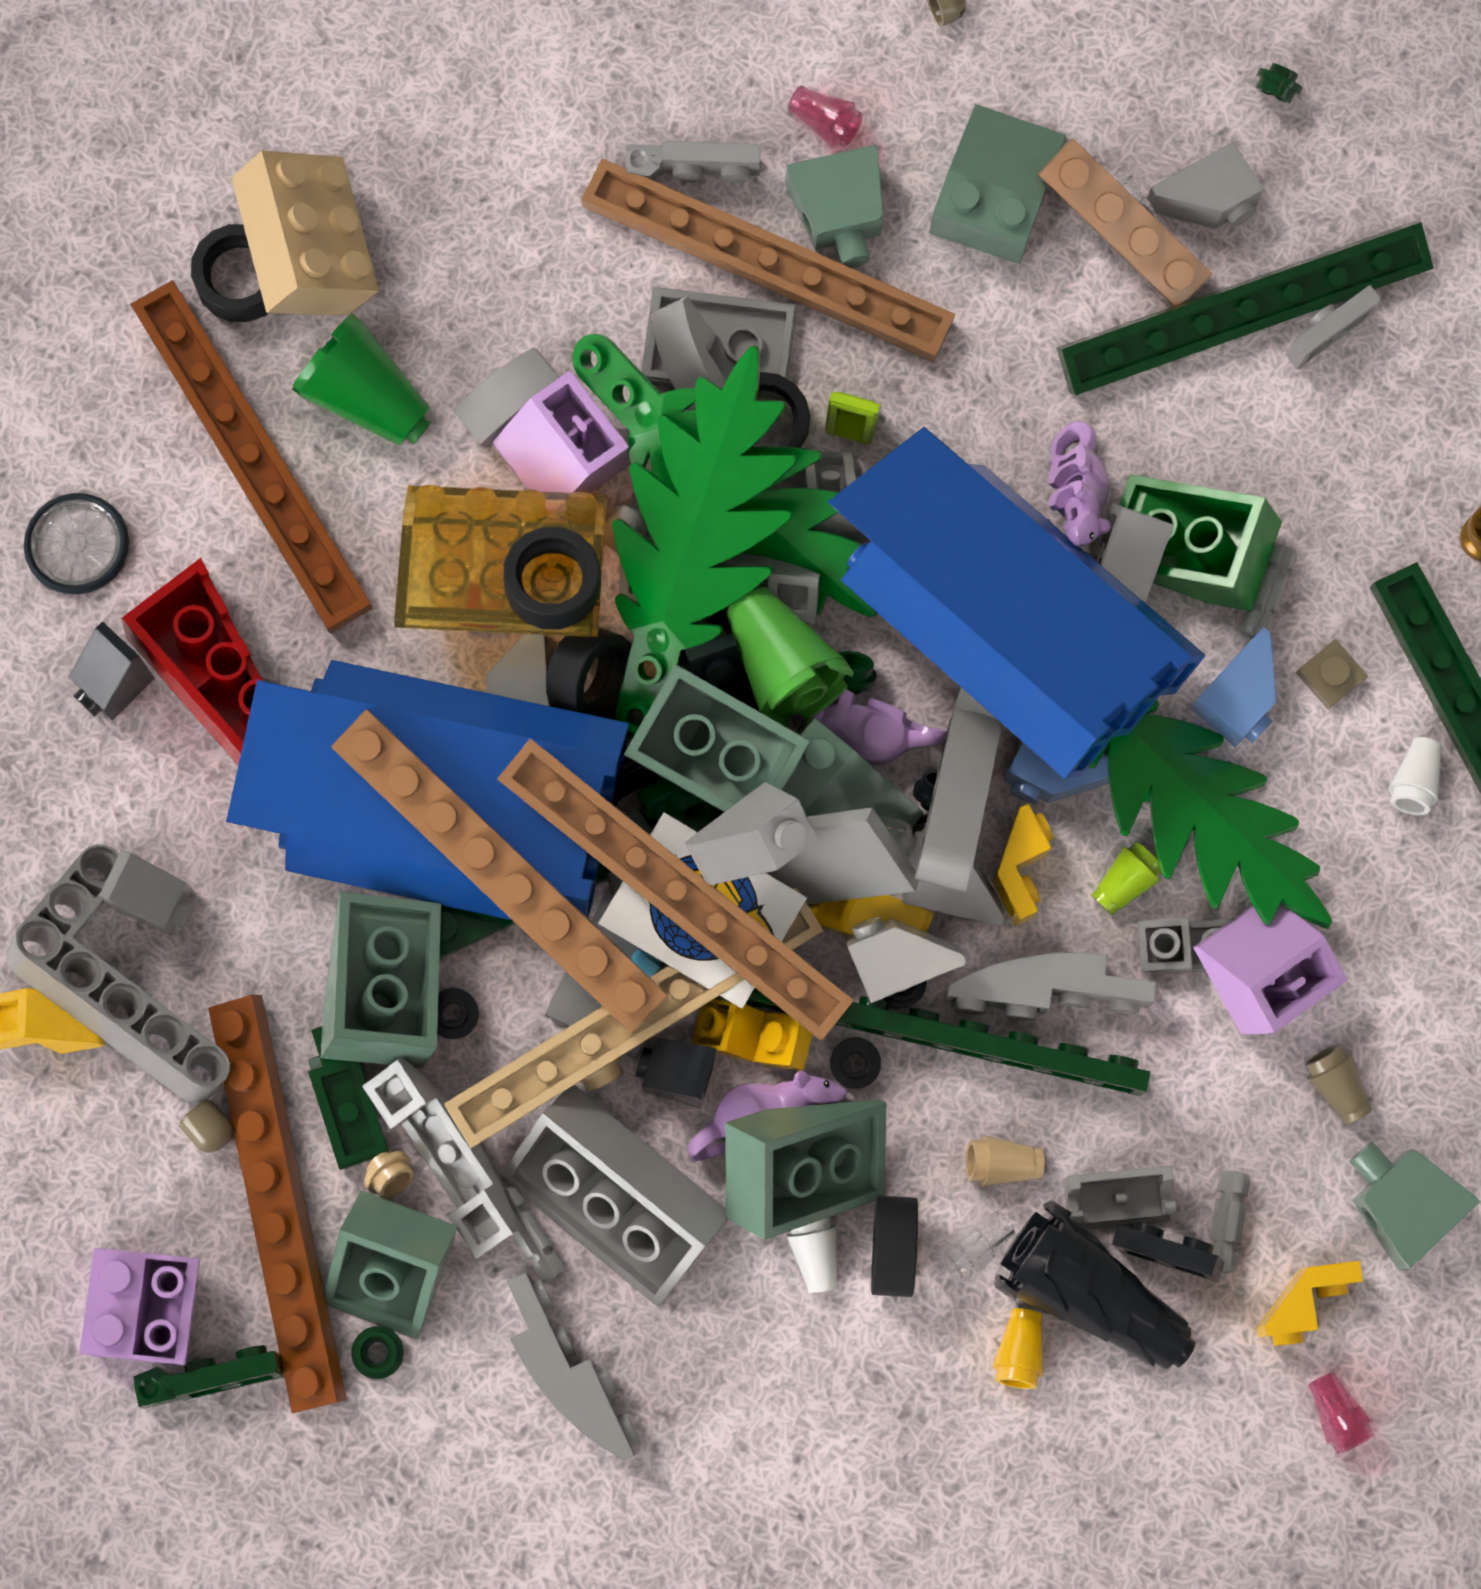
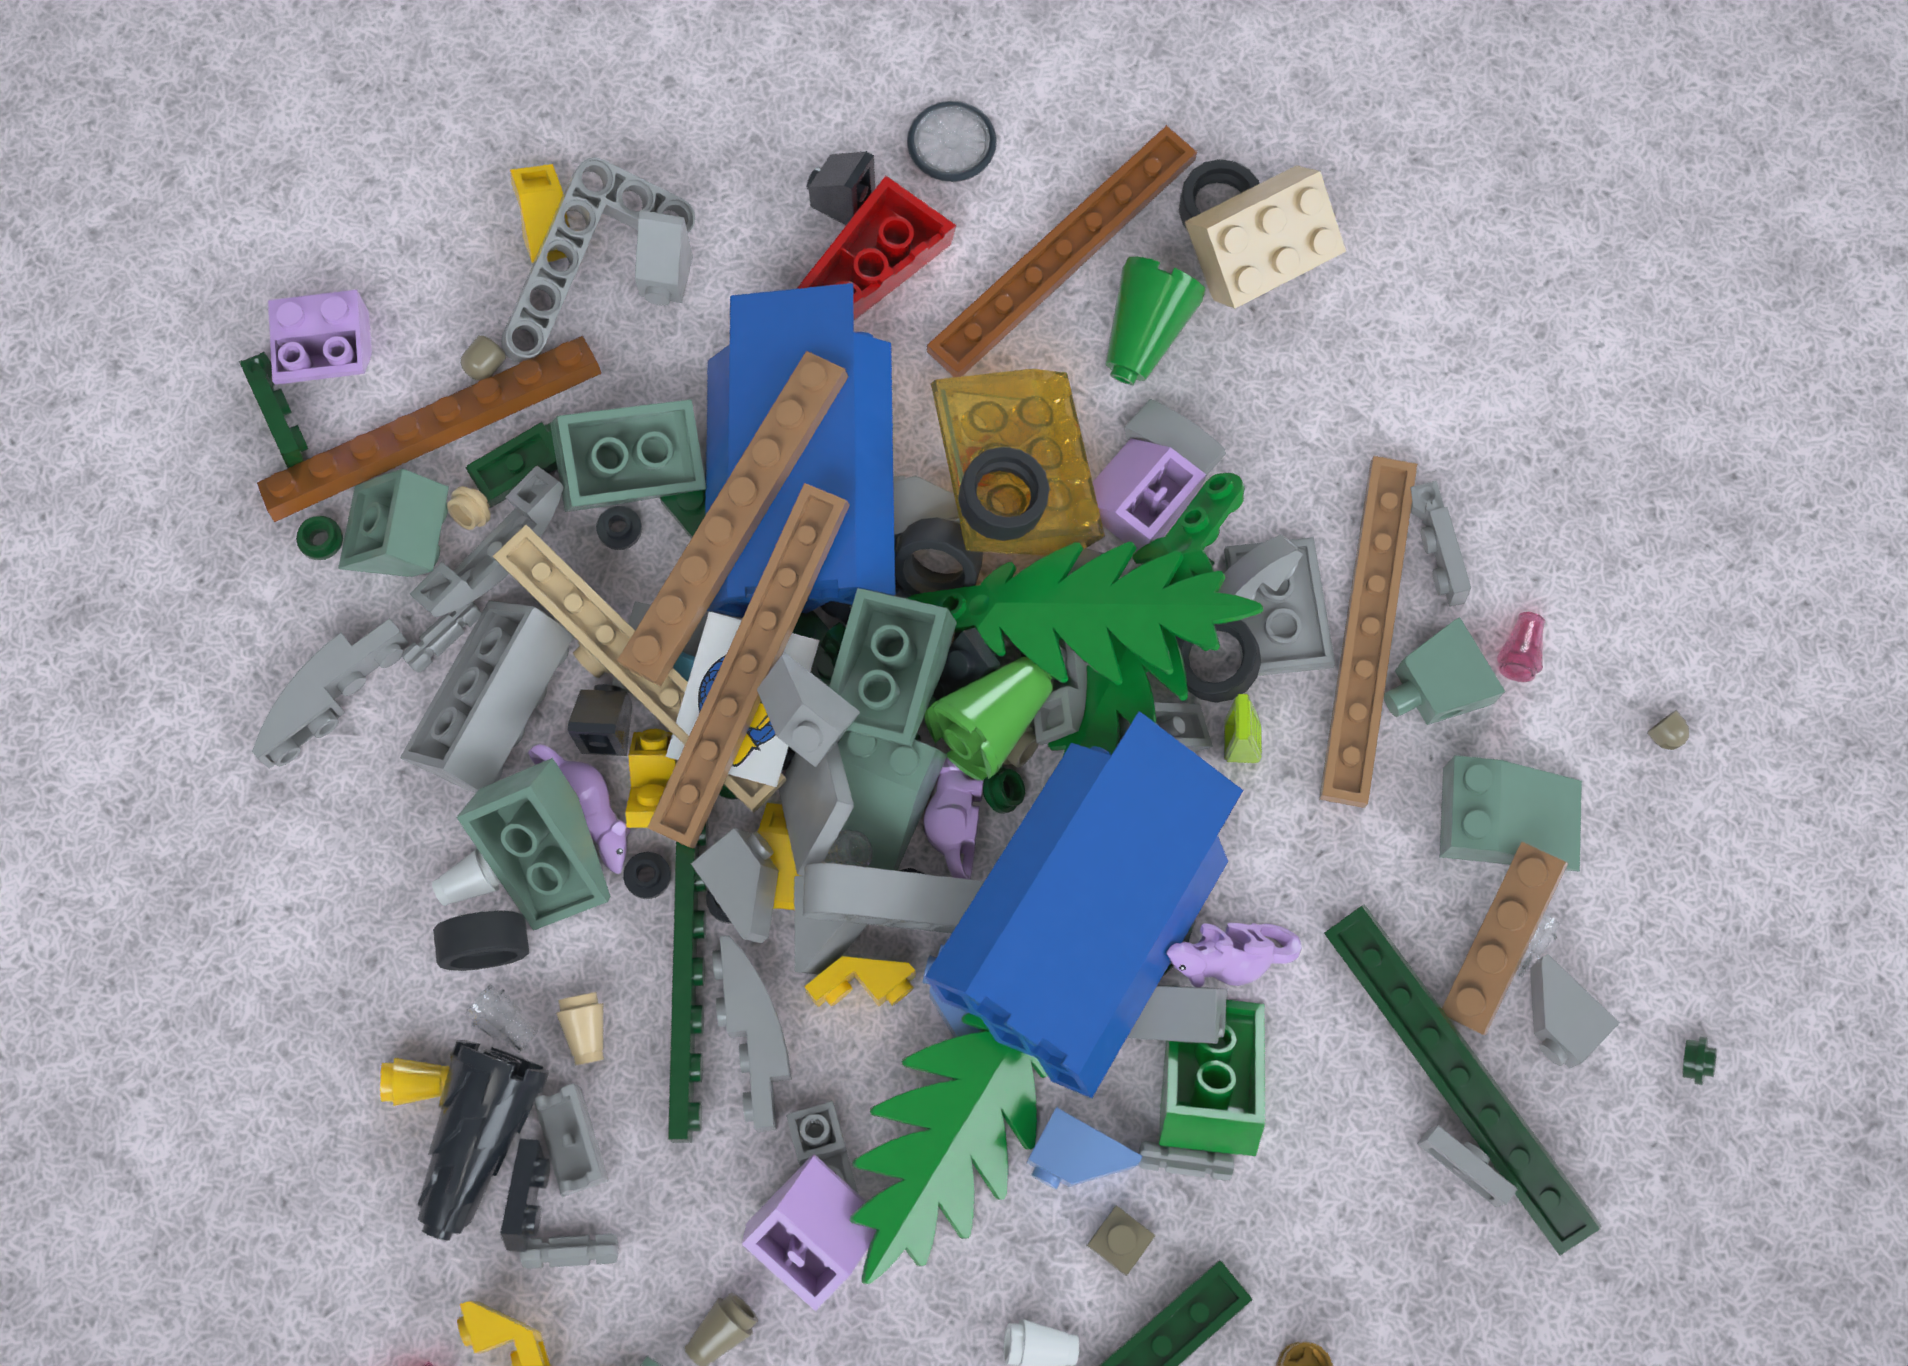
camera: 80 degrees right, 5 degrees down
(1127, 878) = (870, 1081): lime cone -> none

